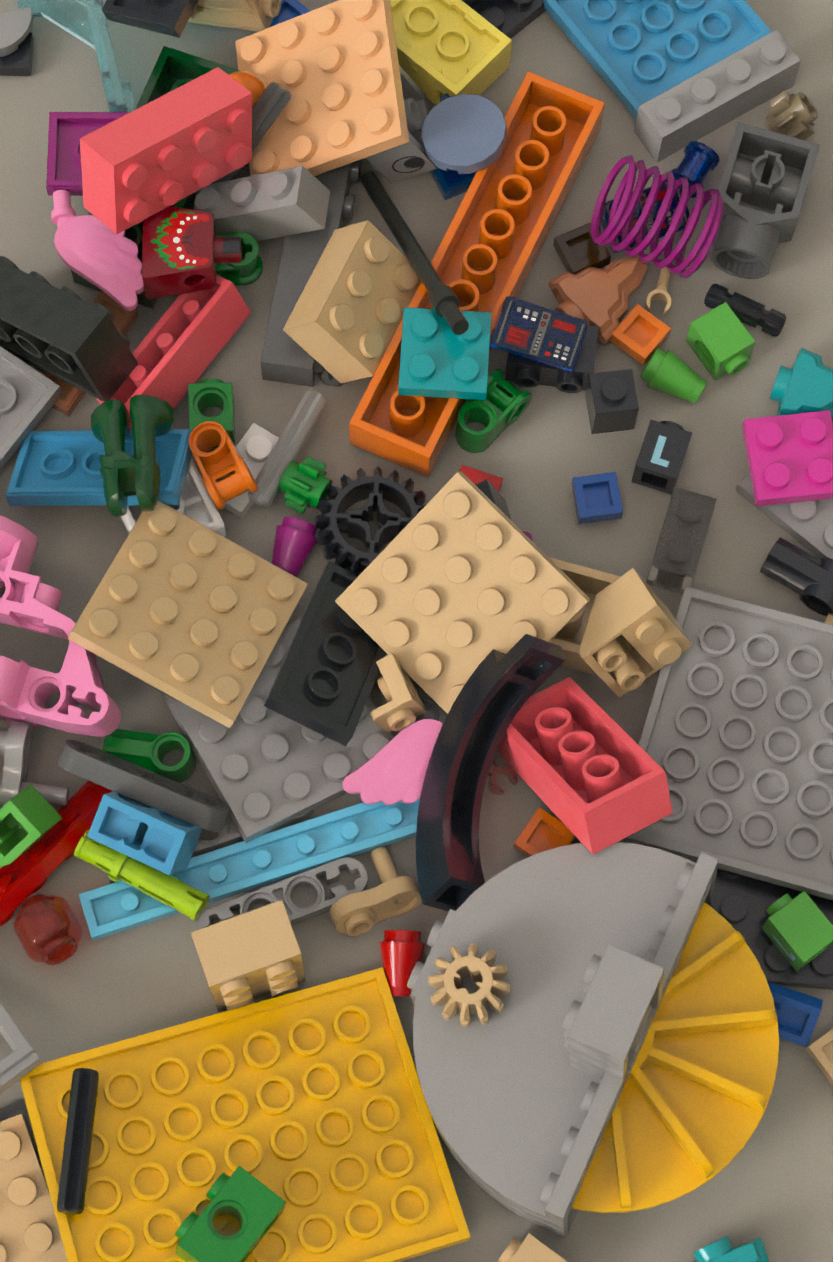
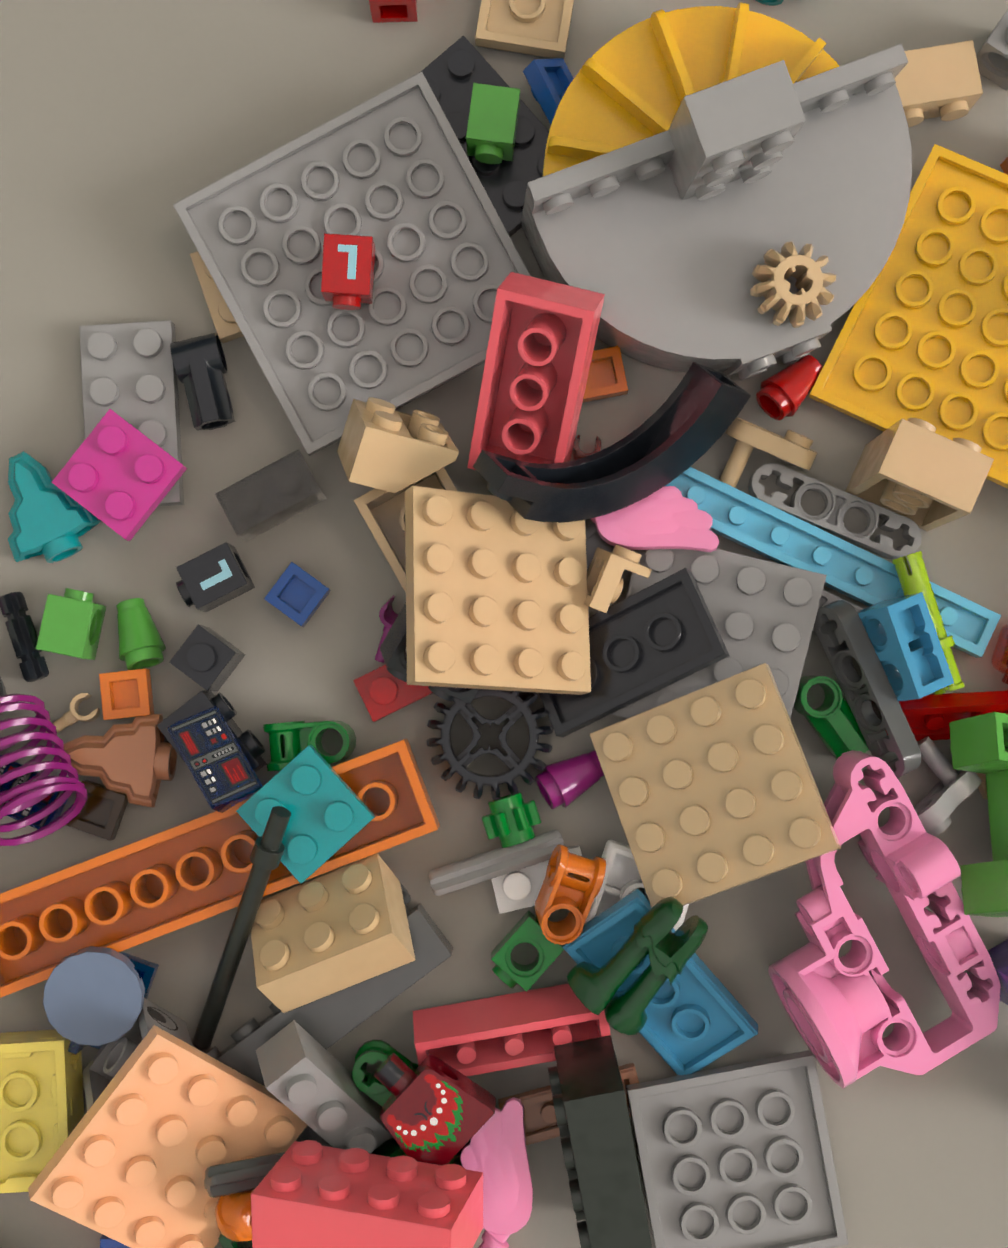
camera: 135 degrees left, 15 degrees up
(784, 718) = (348, 270): none -> red brick

